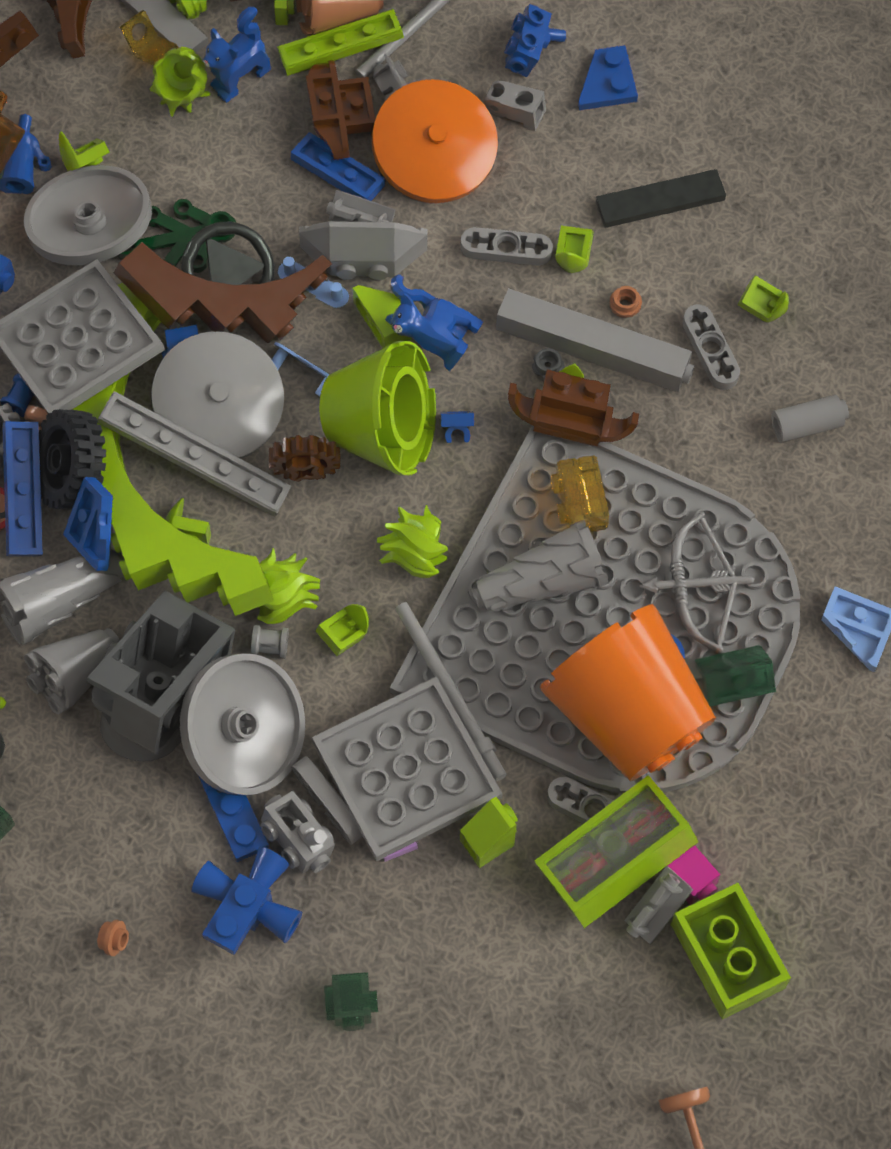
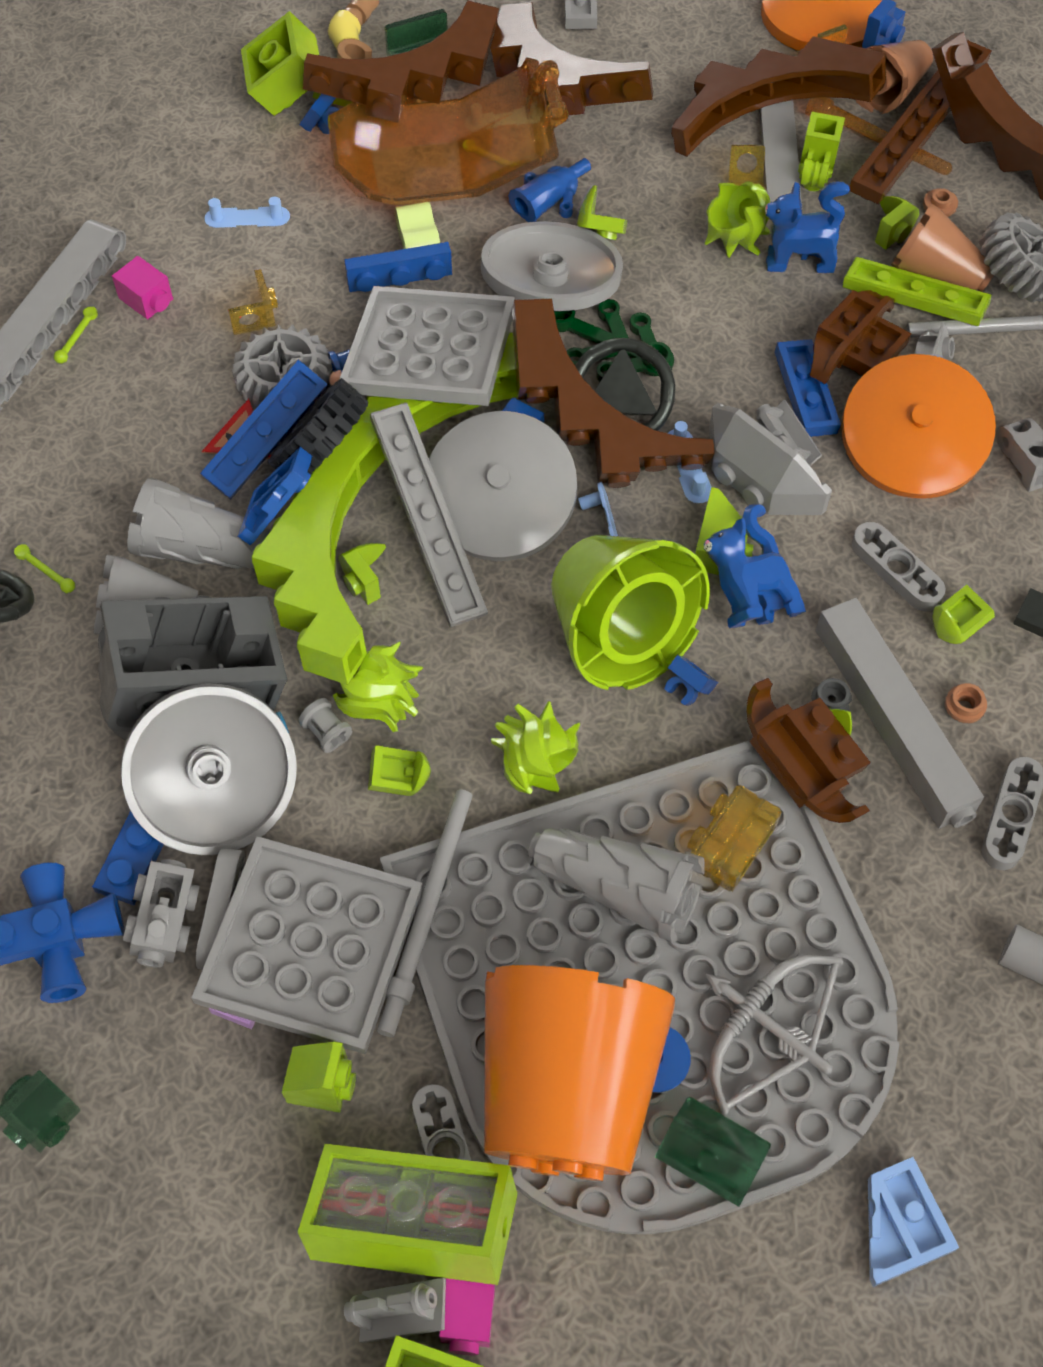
camera: 45 degrees right, 5 degrees down
(304, 458) = (515, 592): reddish brown gear -> none

